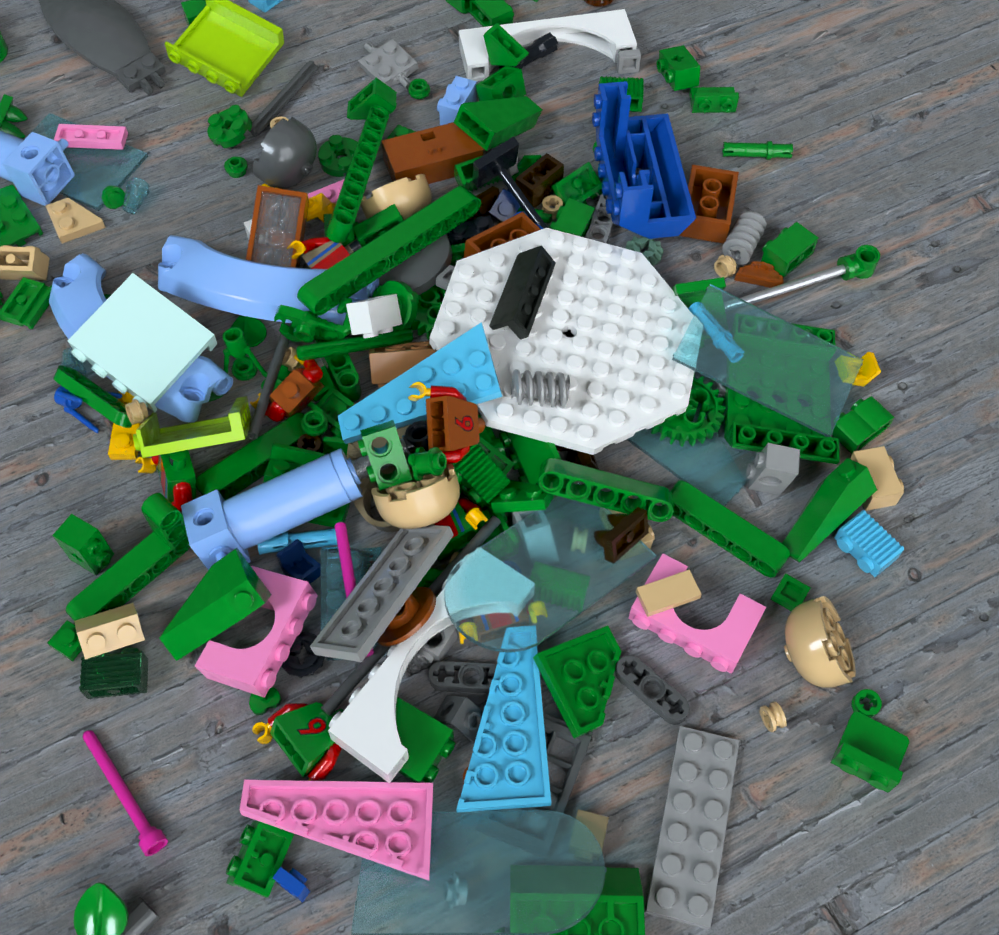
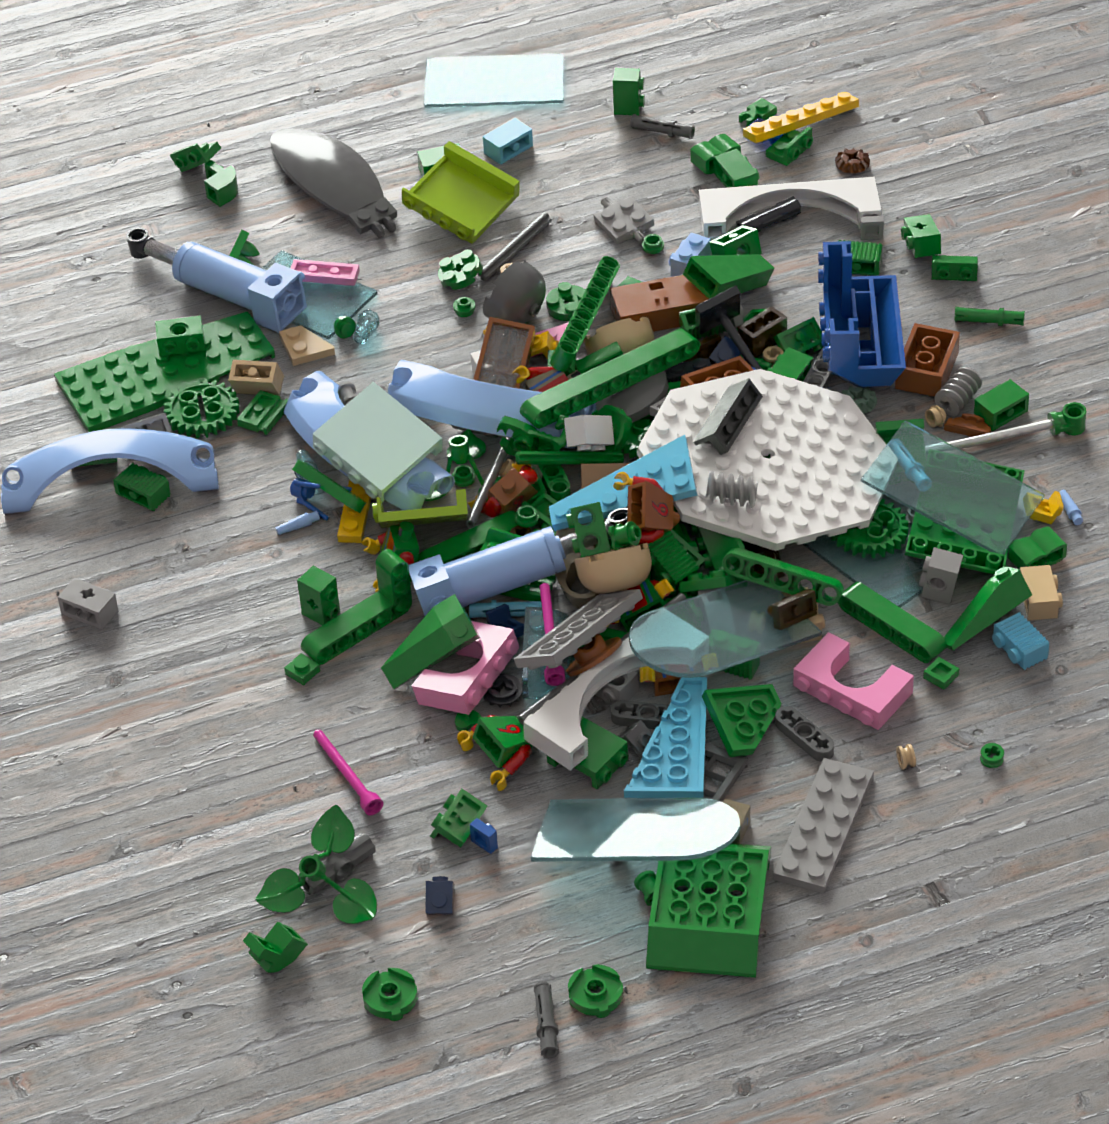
camera: 10 degrees right, 15 degrees down
(65, 439) = (301, 521): none -> light blue animal
(109, 630) = (340, 657): tan brick -> none
(114, 674) = (341, 691): clear green brick -> none
(116, 275) = (347, 392): none -> light grey bush
(136, 411) = (368, 495): tan plate -> none
(366, 819) = (555, 793): bright pink wing -> none
(373, 94) = (606, 245): green slope -> none
(503, 48) = (741, 208): green slope -> none
(668, 593) = (827, 658): tan tile -> none
(814, 644) = (955, 705): tan cylinder -> none
(871, 752) = (985, 785): green bracket -> none
(887, 372) = (1071, 508): none -> light blue animal

